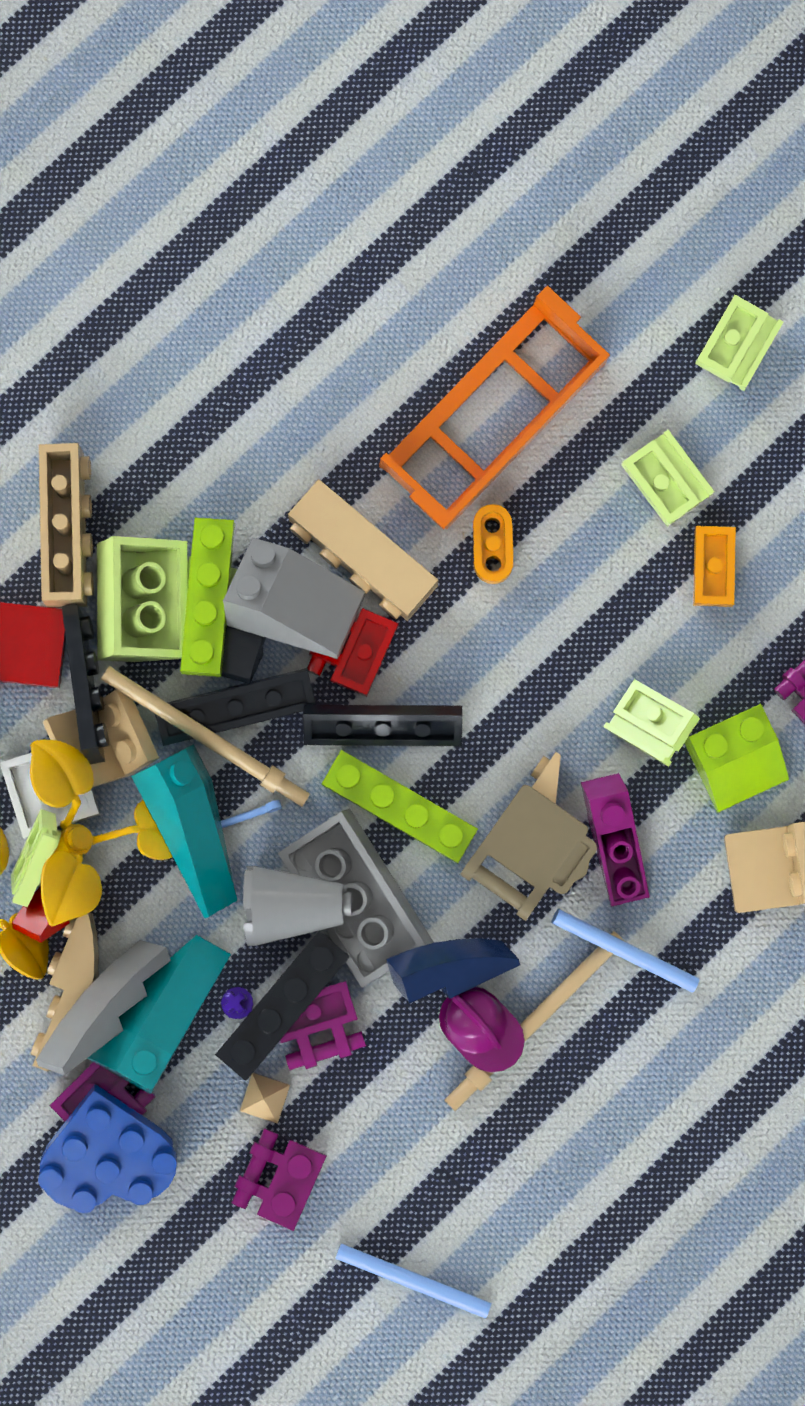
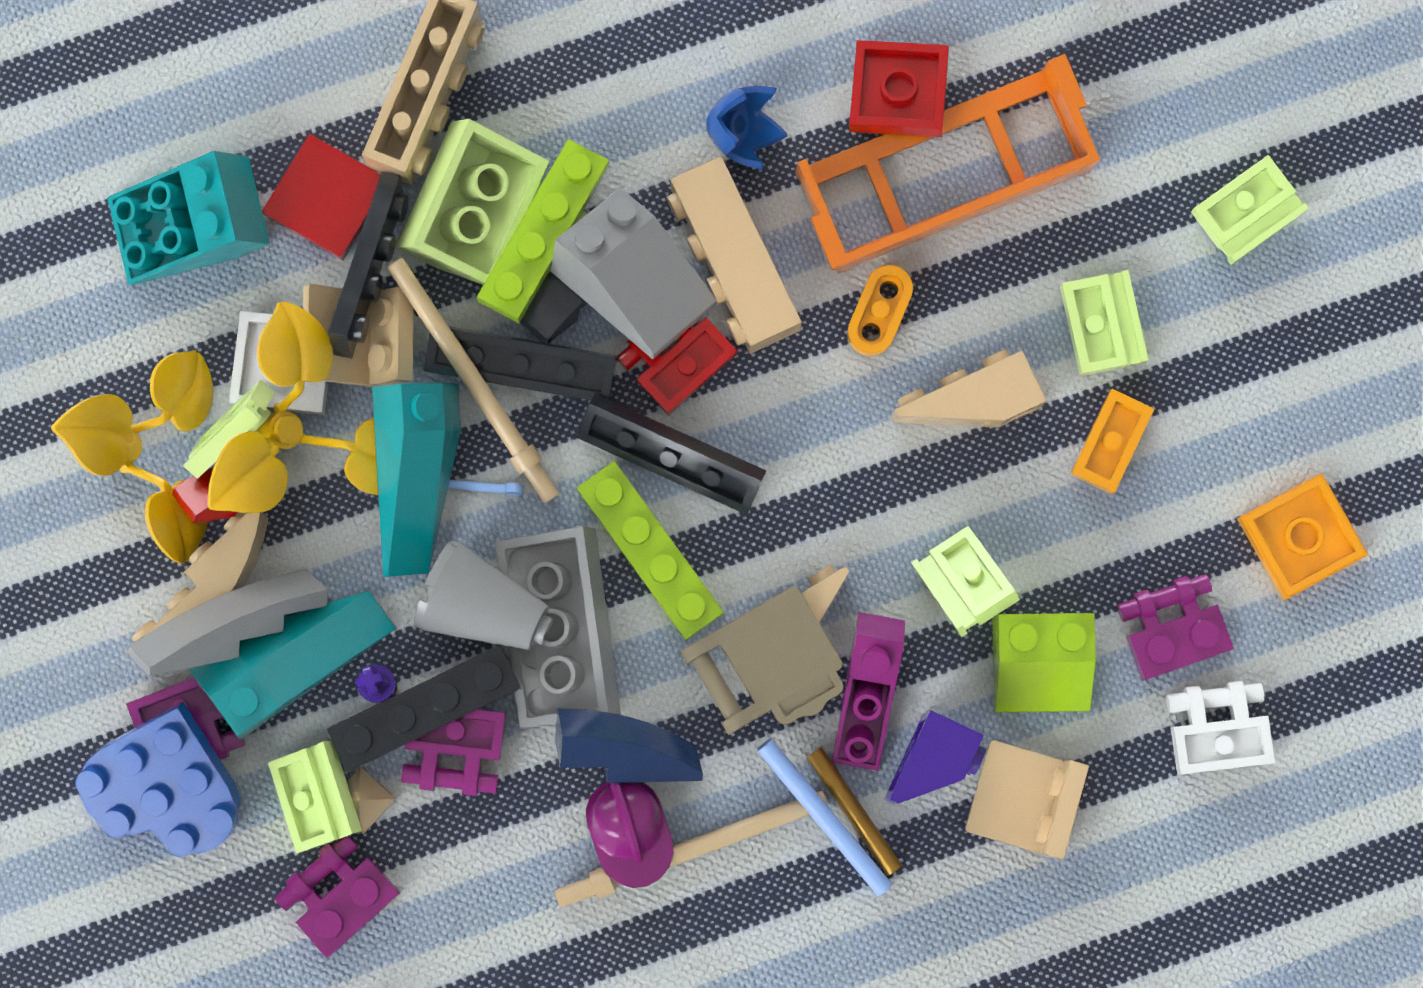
camera: 25 degrees right, 0 degrees up
(228, 1111) = (314, 796): none -> yellowish green plate
(323, 449) = (741, 127): none -> blue piece
(431, 366) = (899, 88): none -> red plate
(604, 575) = (985, 398): none -> tan slope
(645, 936) = (854, 811): none -> pearl gold bar
(689, 867) = (936, 757): none -> dark purple slope

